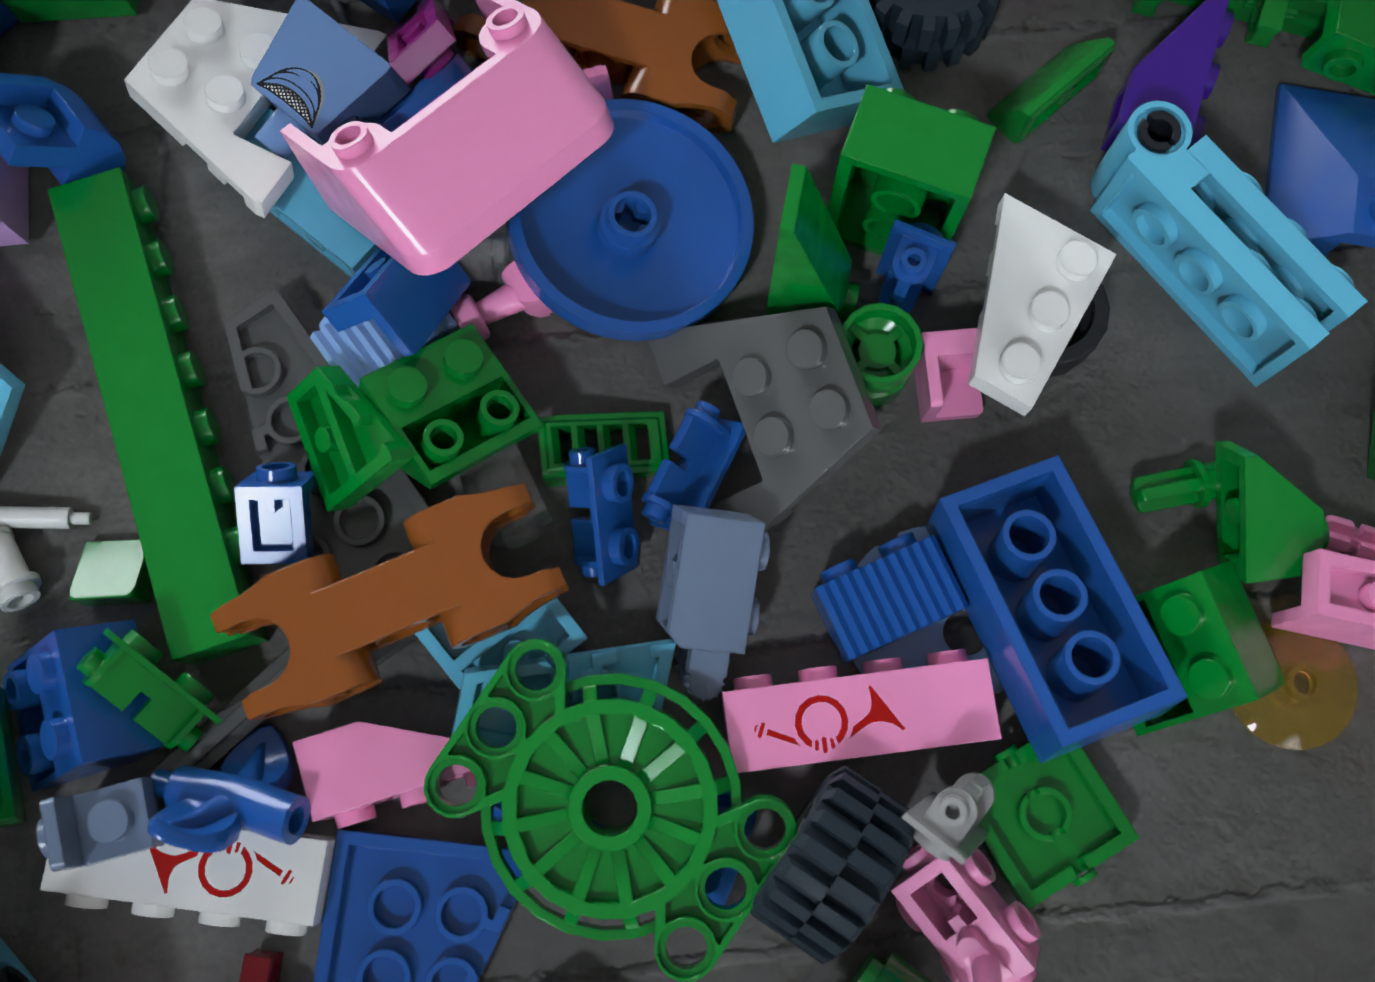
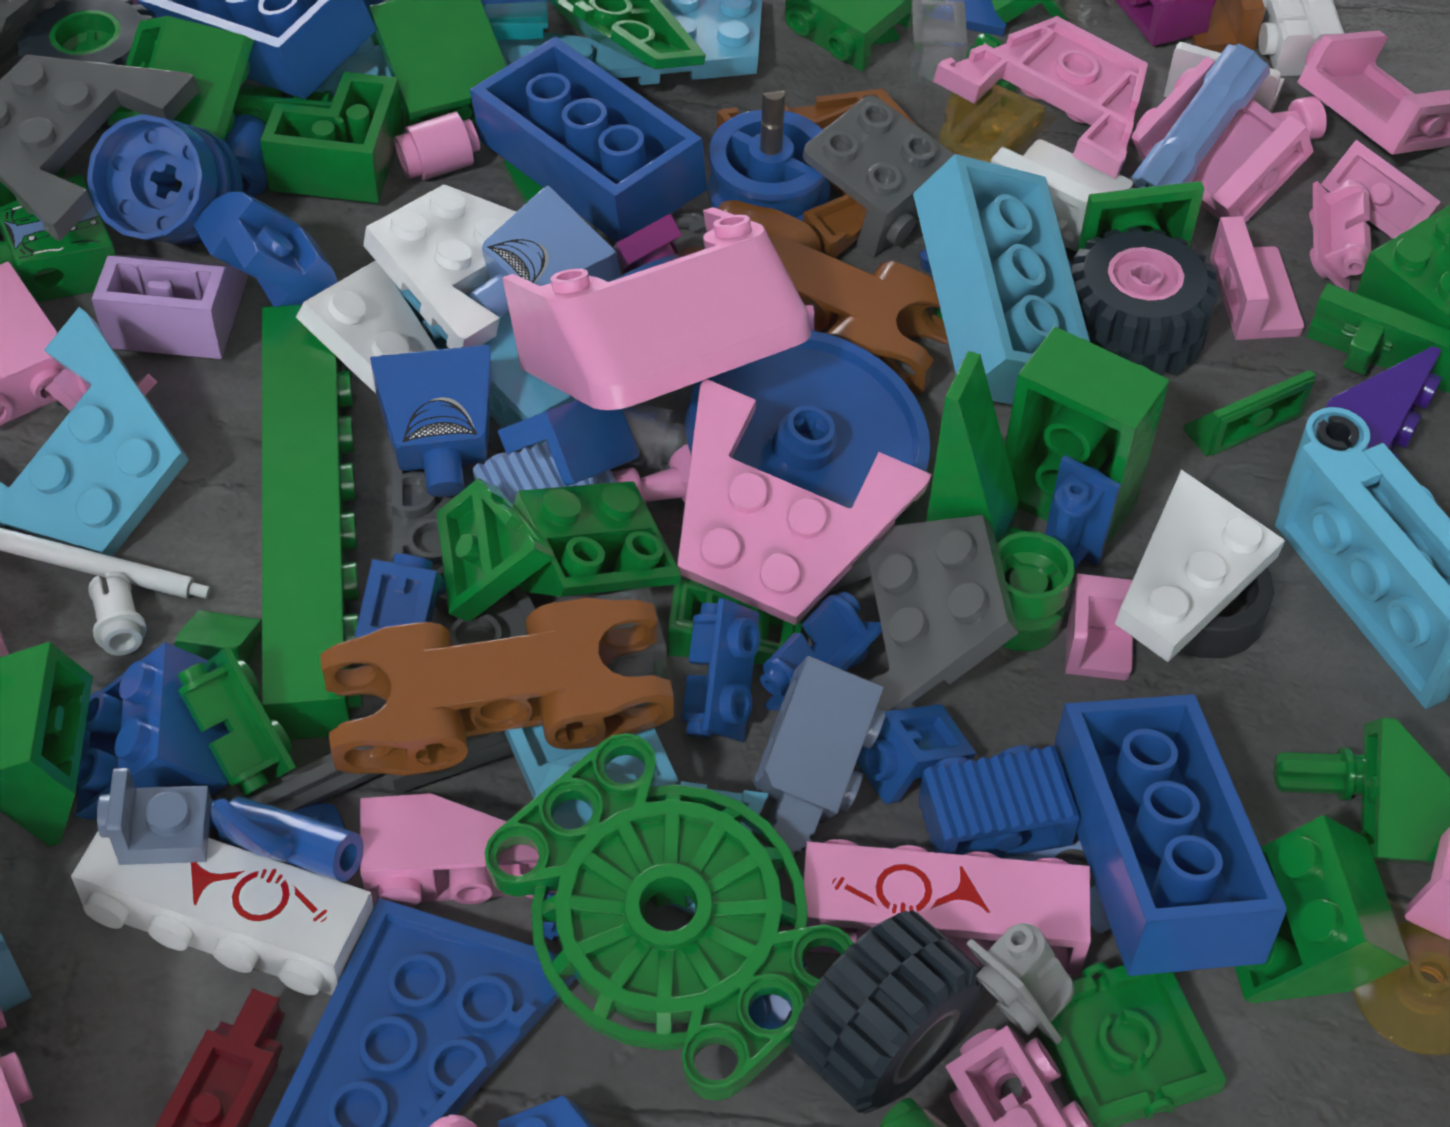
camera: 10 degrees right, 25 degrees down
(182, 206) = (363, 320): none -> white wing
(255, 286) = (436, 411): none -> blue torso
(615, 360) = (766, 536): none -> bright pink wing
(803, 548) = (908, 745): none -> blue bracket

